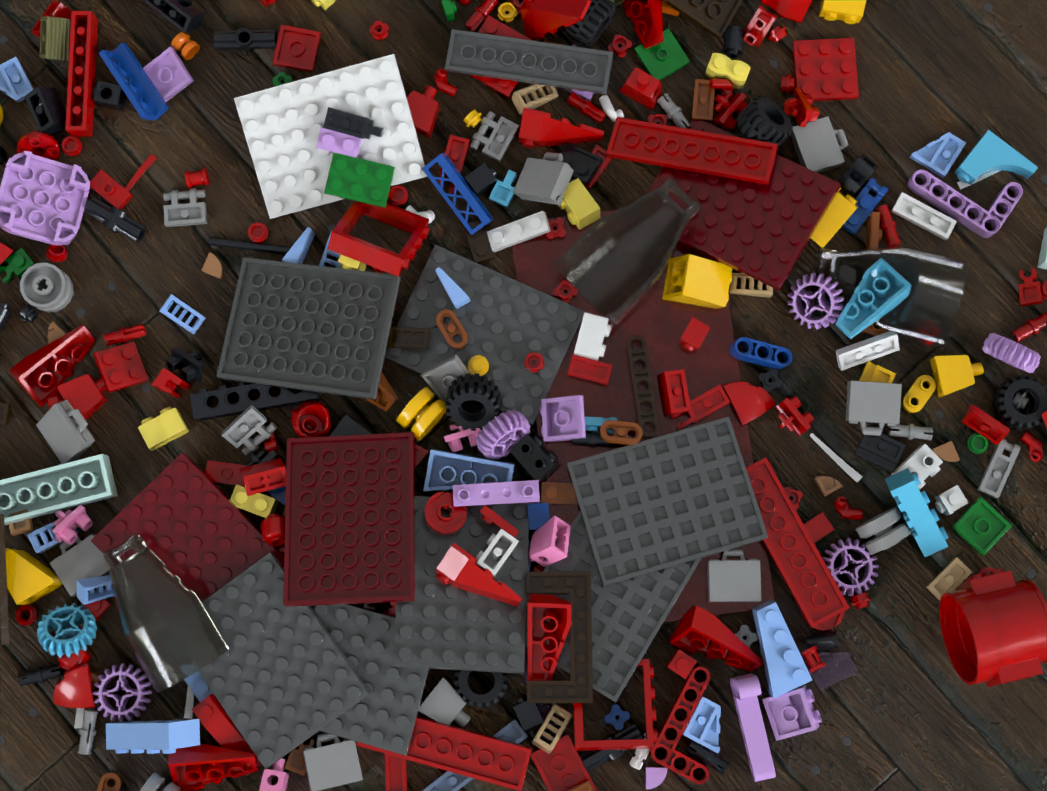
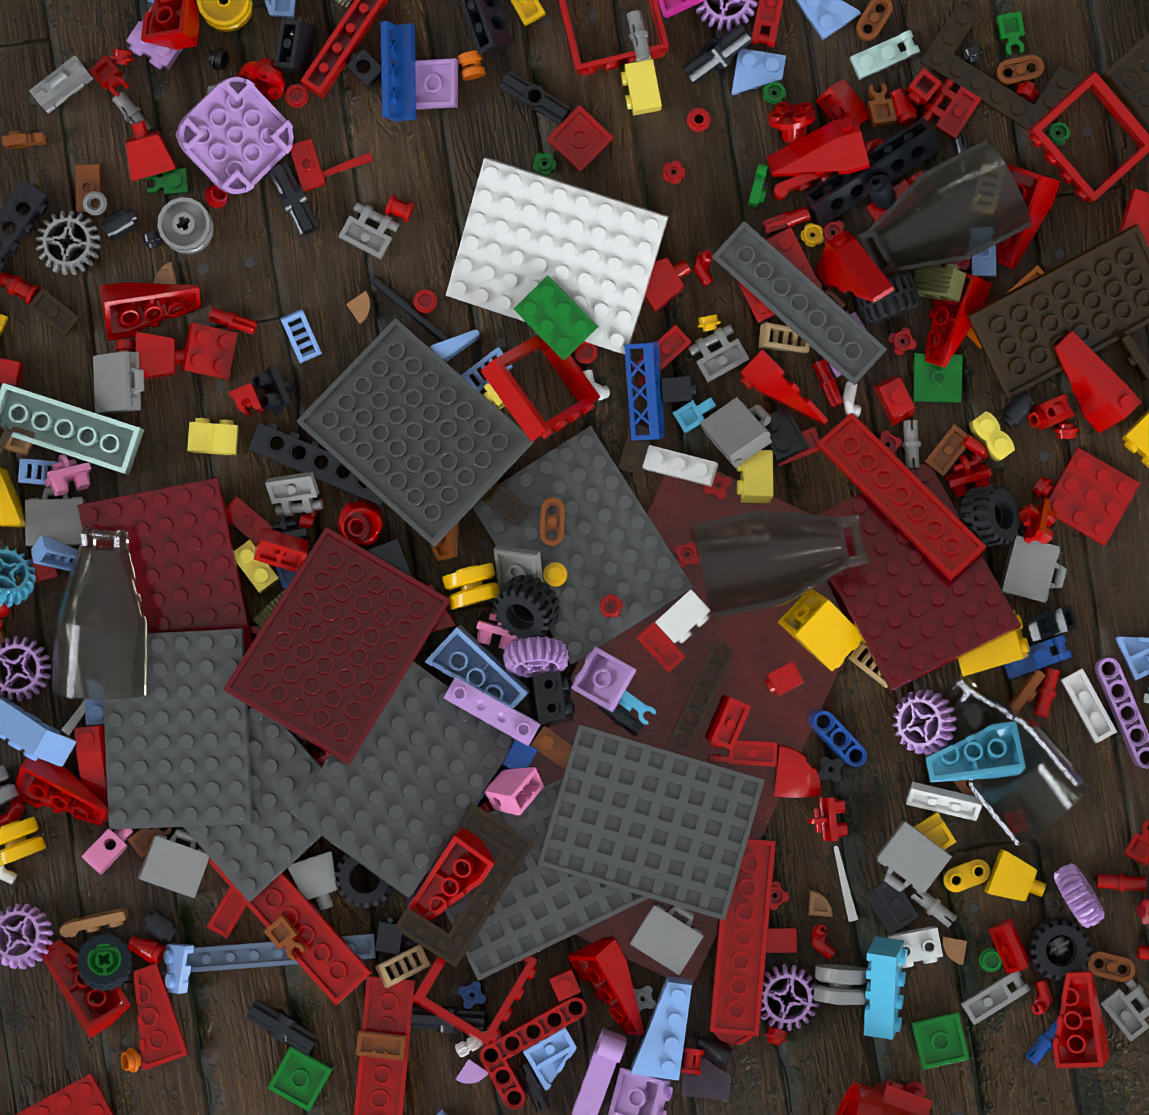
camera: 30 degrees right, 5 degrees up
(273, 530) = (258, 608): red head -> none
(338, 142) = (559, 268): lavender plate -> none
(351, 124) = (582, 260): black hinge -> none
(443, 524) = (423, 709): red plate -> none
(446, 763) = (283, 934): none -> dark orange plate
(456, 294) = (578, 491): light blue slope -> none
(461, 571) = (411, 765): red wedge -> none
(491, 517) = (480, 749): red plate -> none
(498, 551) = (453, 770): white brick -> none
(621, 432) = (651, 726): dark orange plate -> none
(949, 578) = (875, 1070): tan plate -> none
(950, 500) = (927, 997): white bracket -> none

